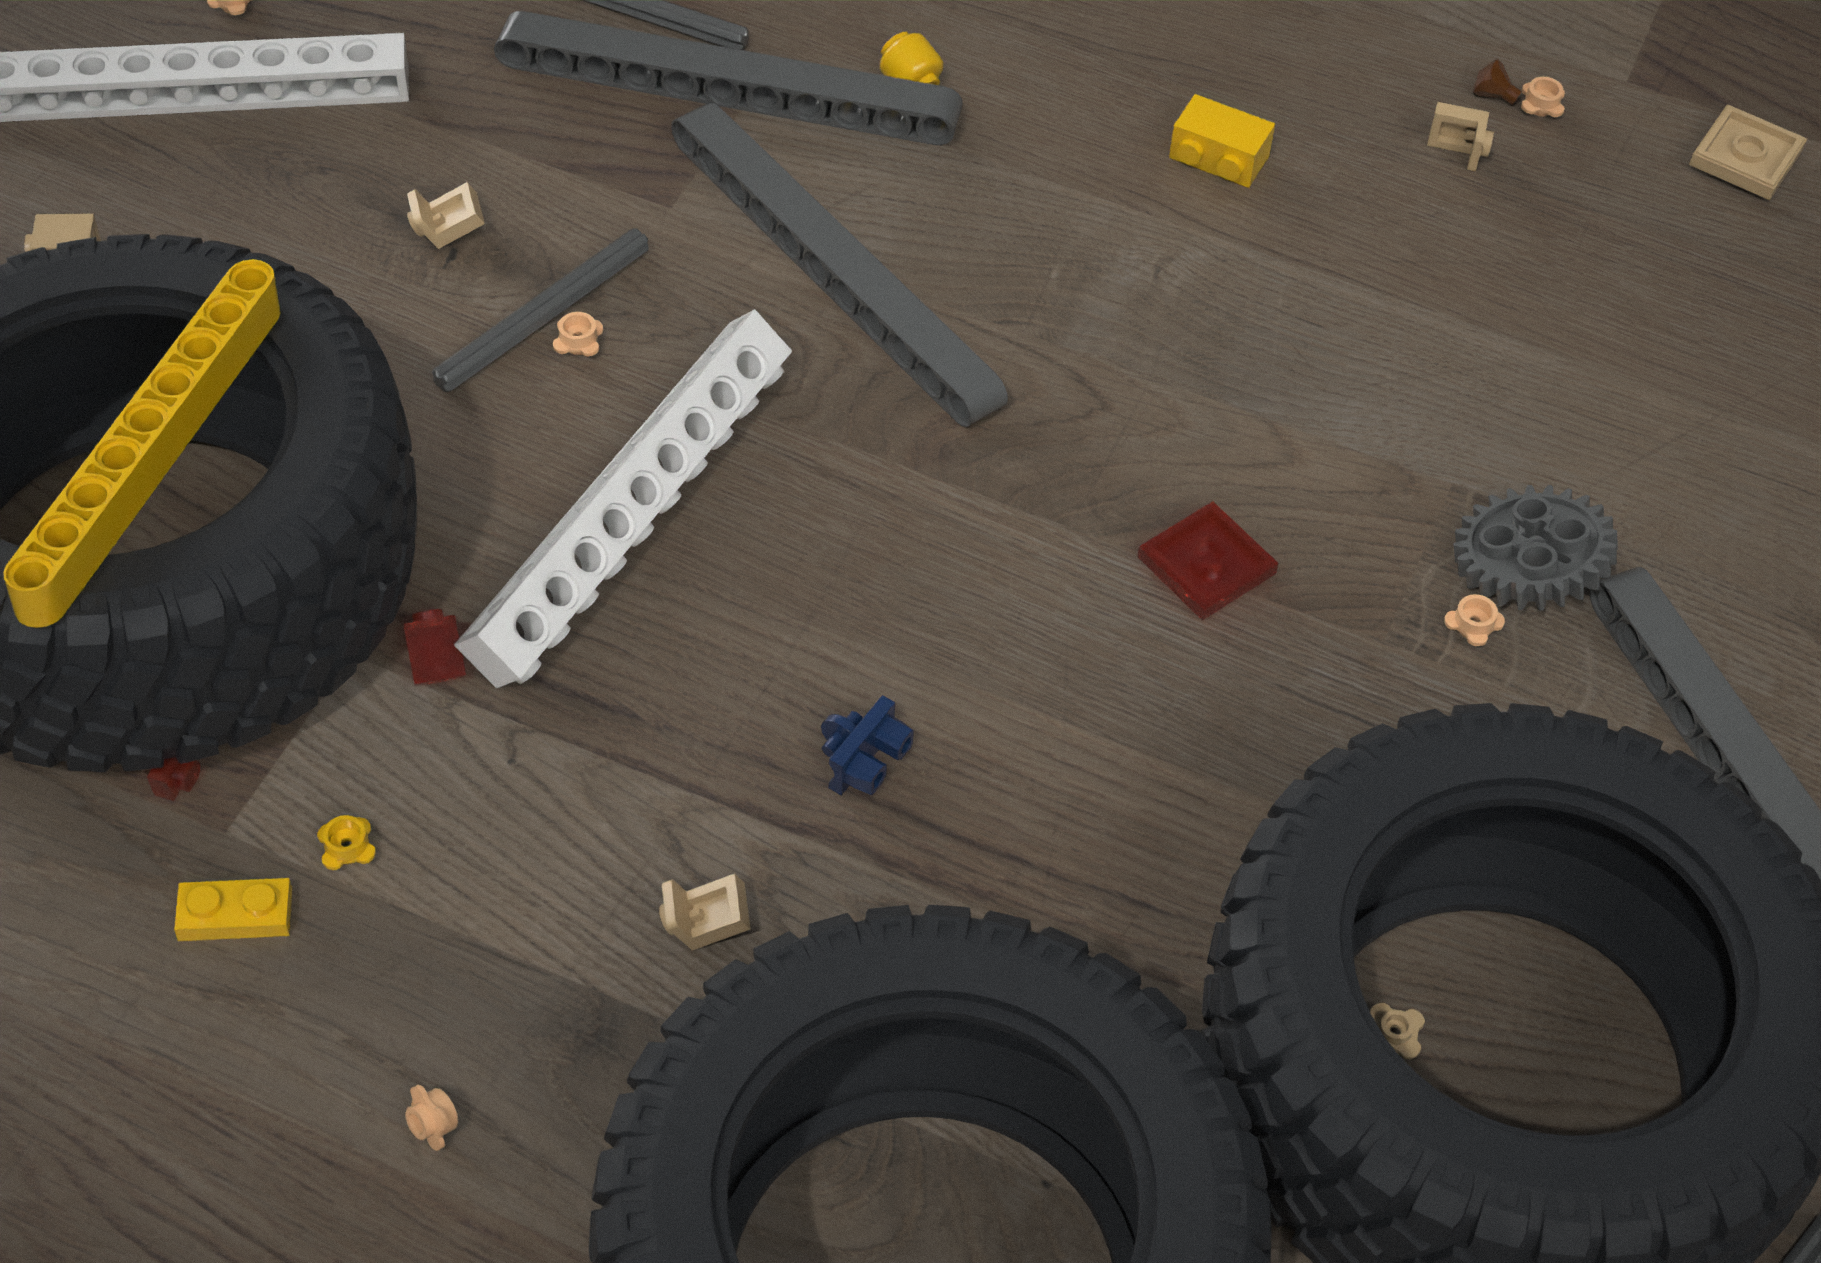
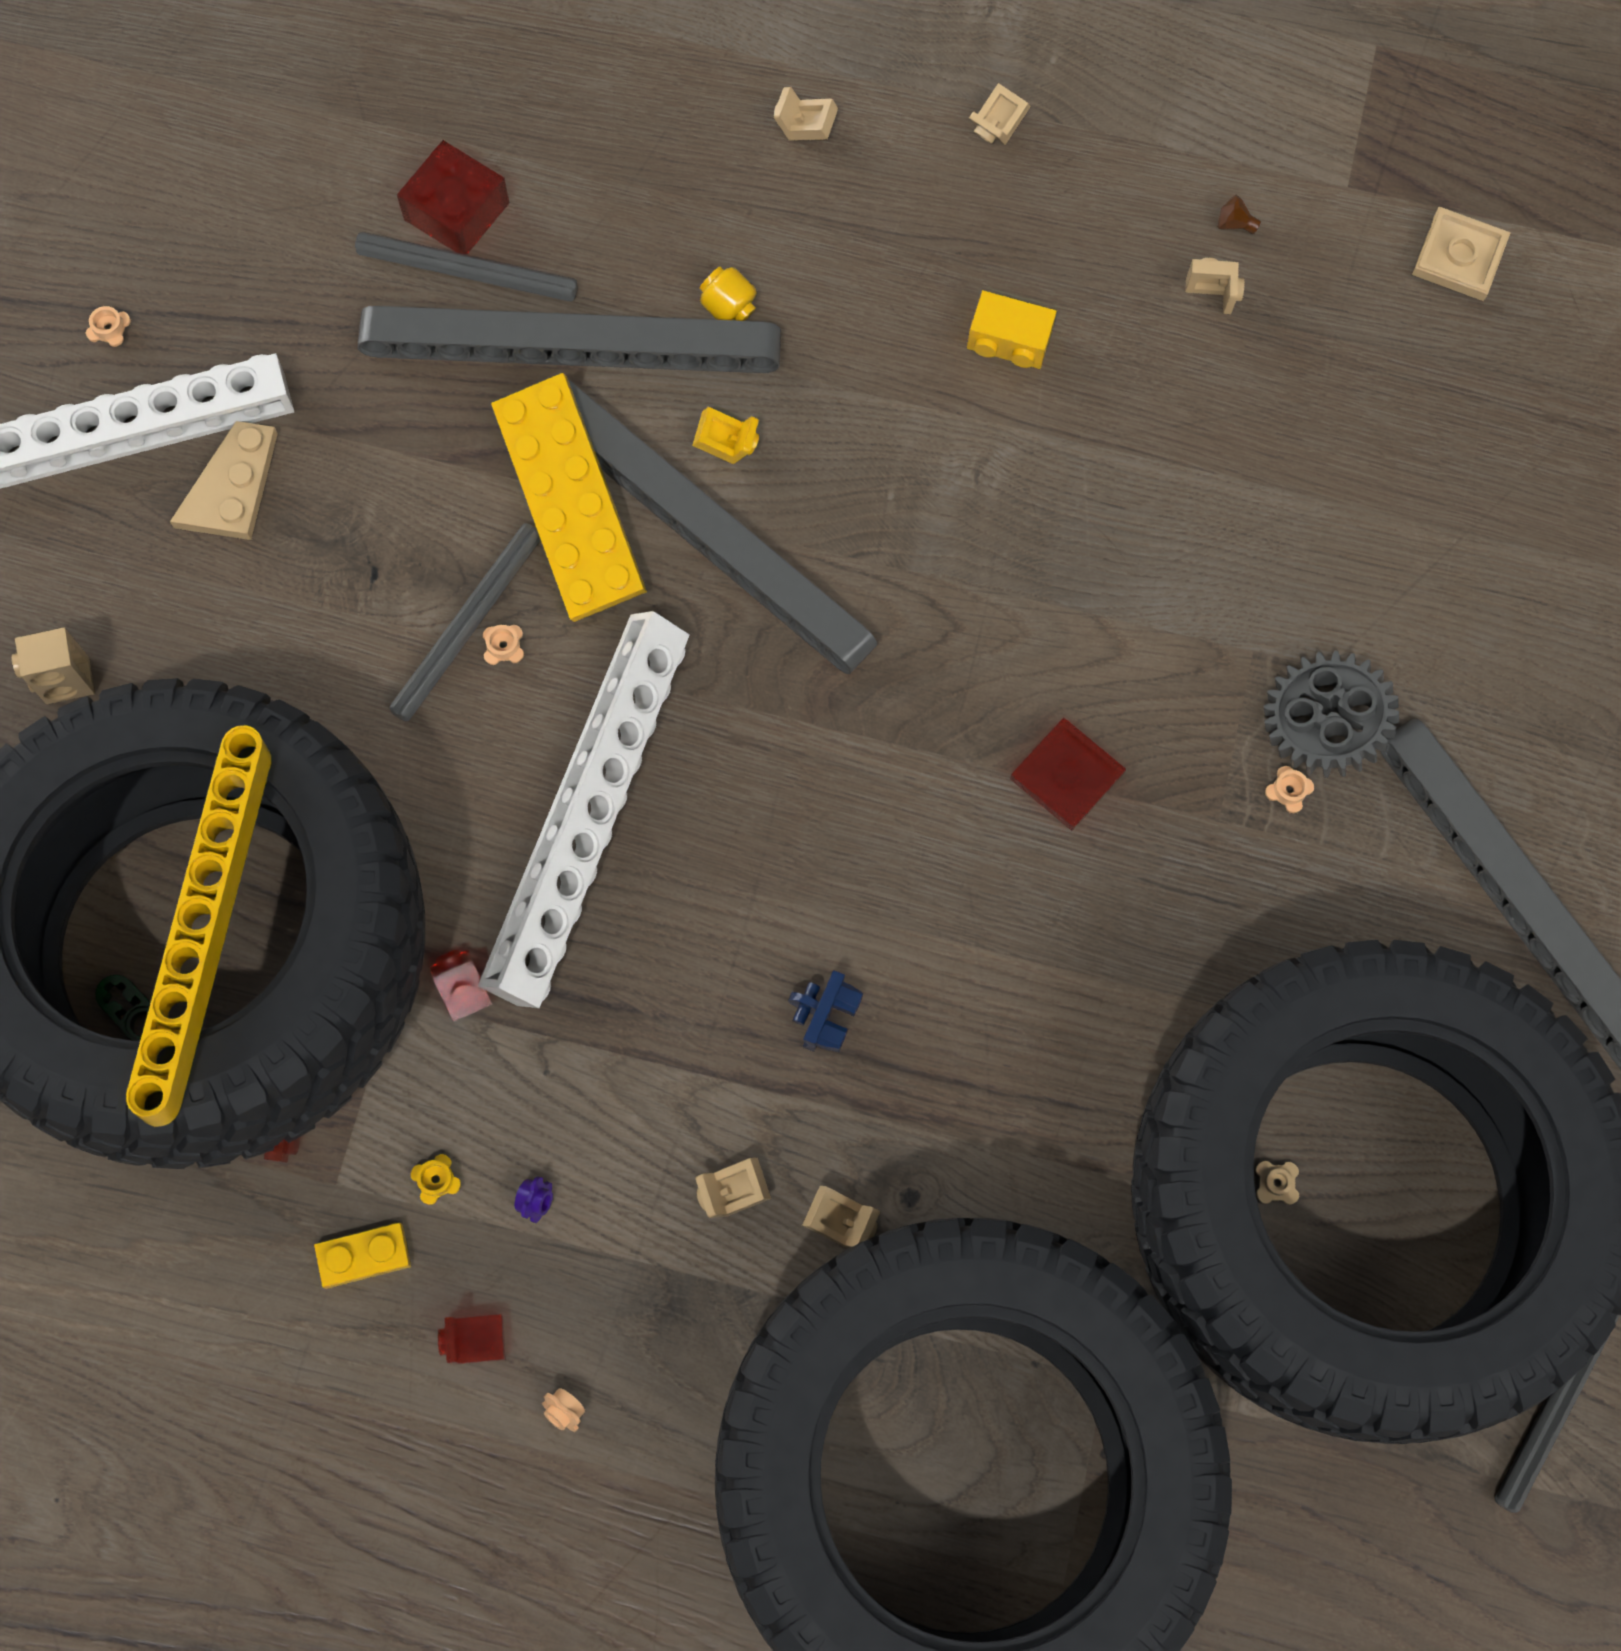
camera: 10 degrees left, 20 degrees up
(318, 151) = (231, 485): none -> tan wing
(339, 1017) = (472, 1339): none -> clear red bracket
(446, 216) = (361, 540): tan bracket -> none
(458, 879) = (533, 1198): none -> dark purple plate
(688, 210) = (568, 497): none -> yellow plate
(878, 185) = (725, 435): none -> yellow bracket
(1543, 97) = (1283, 216): light nougat plate -> none

